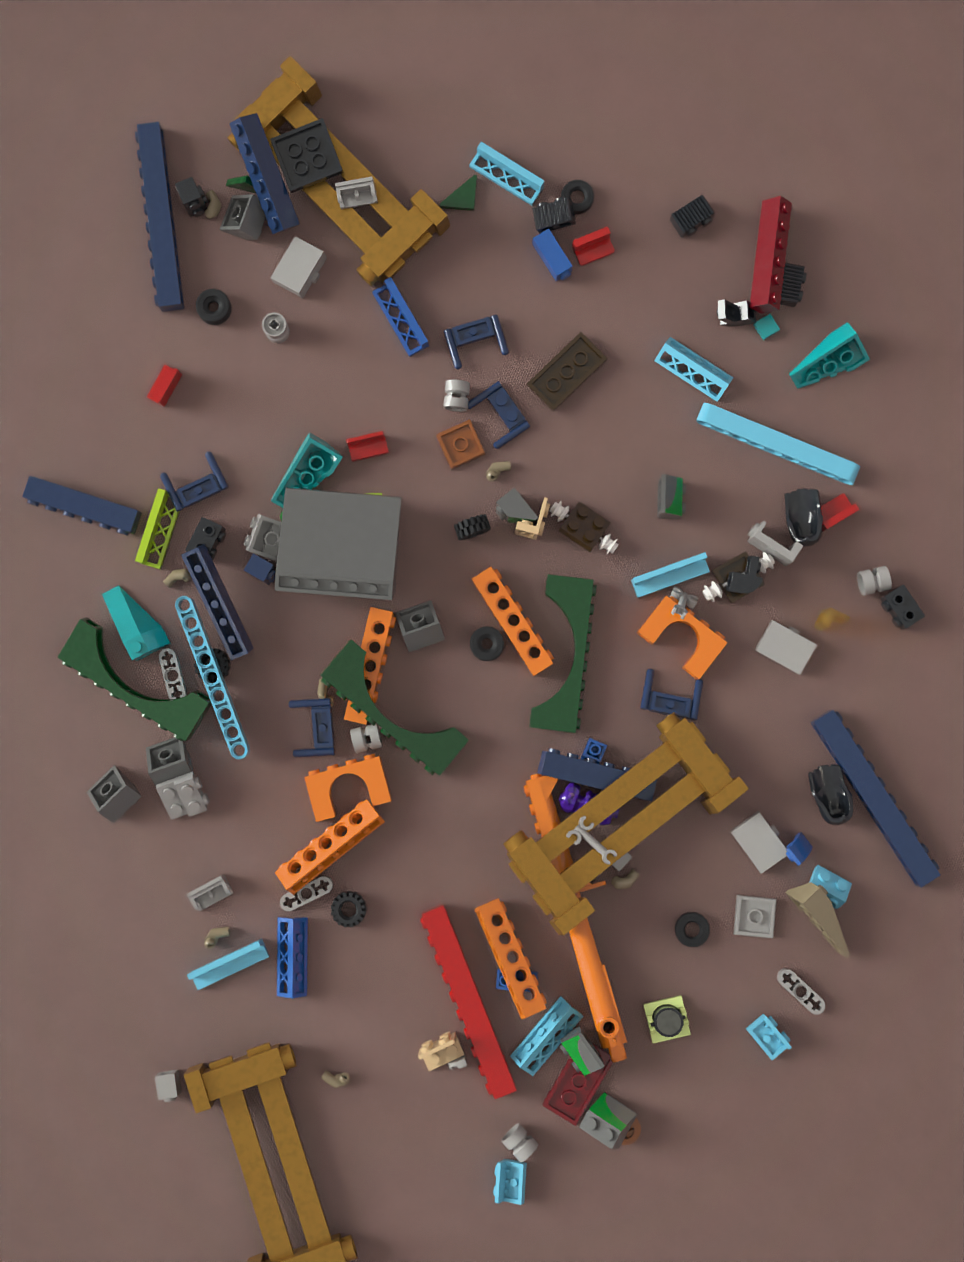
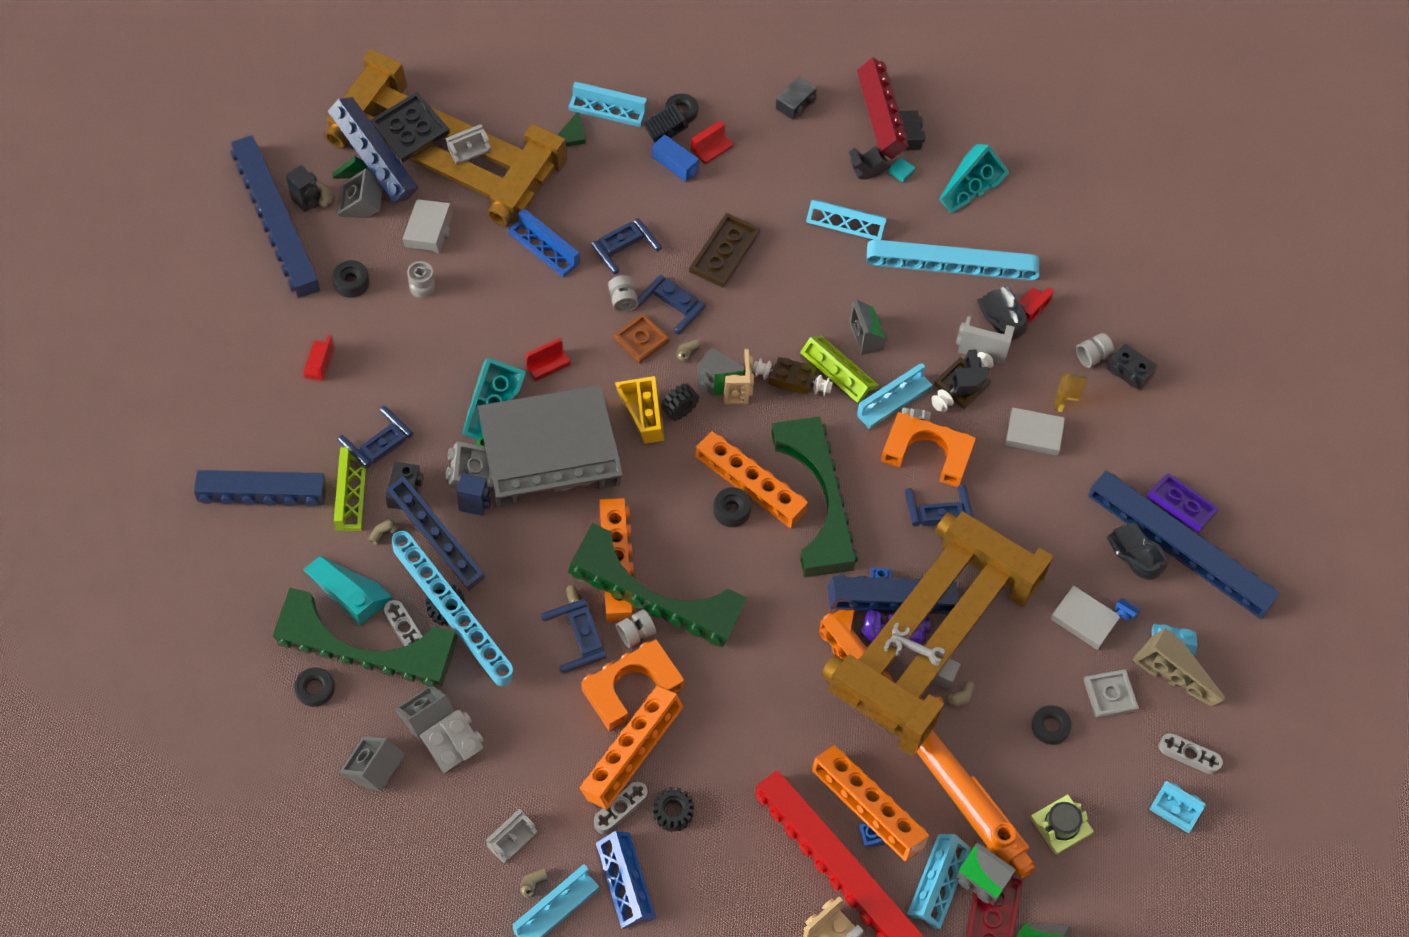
camera: 25 degrees left, 25 degrees down
(96, 709) = (320, 698): none -> black tyre
(420, 626) = (658, 508): dark grey slope -> none
(438, 519) = (643, 405): none -> yellow wedge
(628, 529) = (838, 368): none -> lime fence
(891, 759) = (1182, 502): none -> dark purple plate

